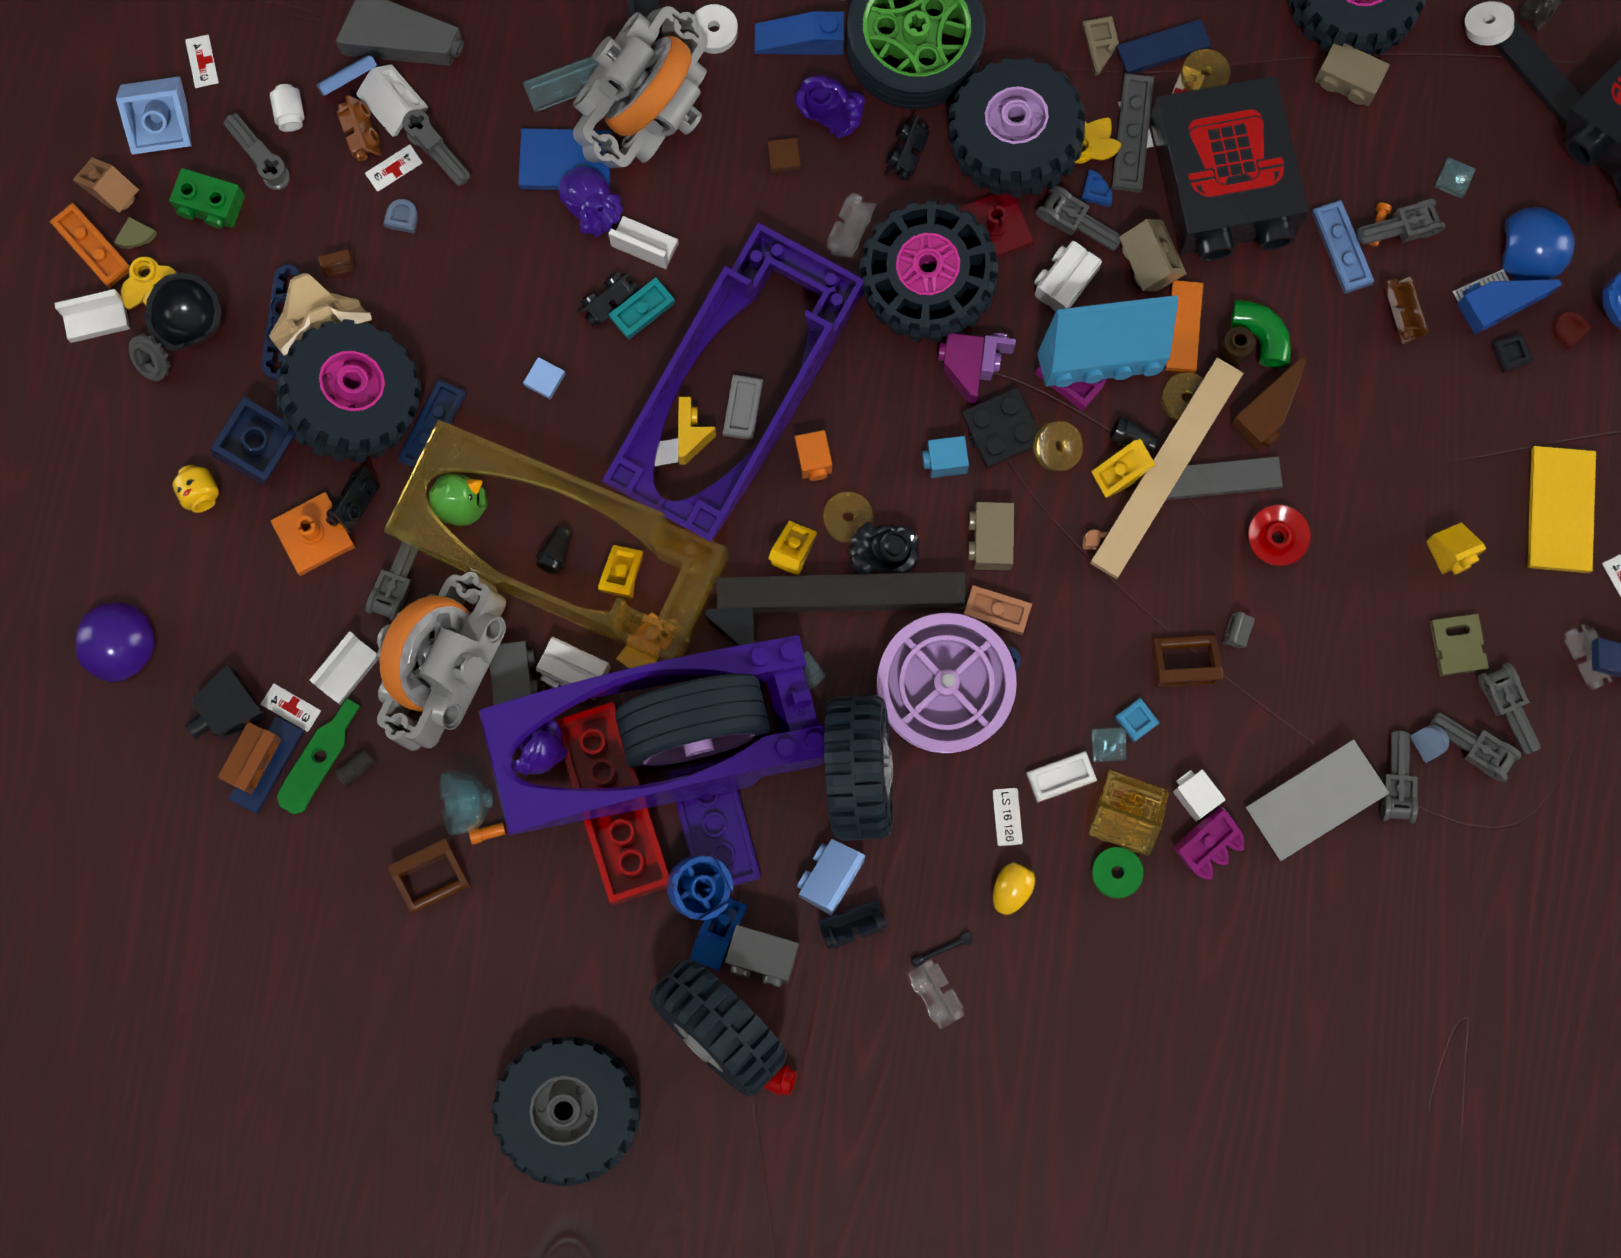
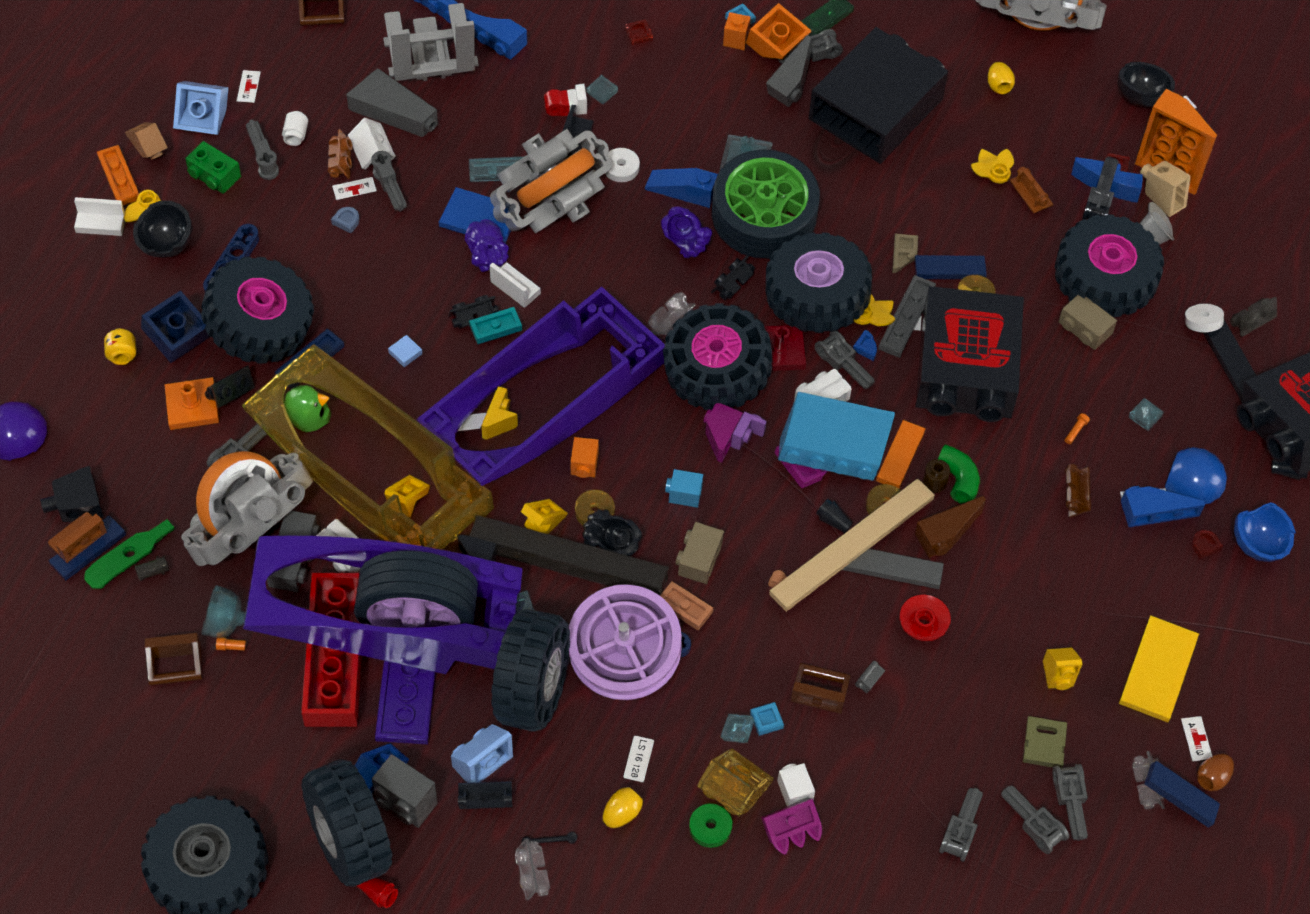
camera: 15 degrees right, 20 degrees down
(134, 235) = (151, 176): olive tile -> none
(141, 349) = (125, 246): dark grey gear -> none
(290, 707) = (123, 515): white sticker -> none
(309, 306) = (254, 245): tan piece -> none
(337, 263) = (287, 233): reddish brown tile -> none
(344, 668) = (172, 496): white panel -> none
(346, 75) = (344, 116): medium blue tile -> none
(540, 750) = (293, 582): dark purple hair -> none
(554, 552) = (362, 467): black cone -> none
(699, 887) = (375, 723): blue cylinder -> none
(743, 407) = (544, 410): light grey tile -> none
(784, 155) = (640, 258): reddish brown tile -> none
(1001, 428) = (735, 482): black plate -> none
(1045, 446) = (781, 498): clear yellow piece -> none
(1061, 777) = (691, 741): white tile -> none
(1123, 468) = (818, 534): yellow slope -> none
(1152, 255) = (893, 393): dark tan brick -> none
(1317, 800) = (890, 818): light grey tile -> none
(1342, 246) = (1043, 436): medium blue tile -> none
(1407, 222) = (1099, 431): dark grey connector -> none
(1430, 742) = (997, 805): sand blue tile -> none
(1512, 353) = (1153, 546): black tile -> none

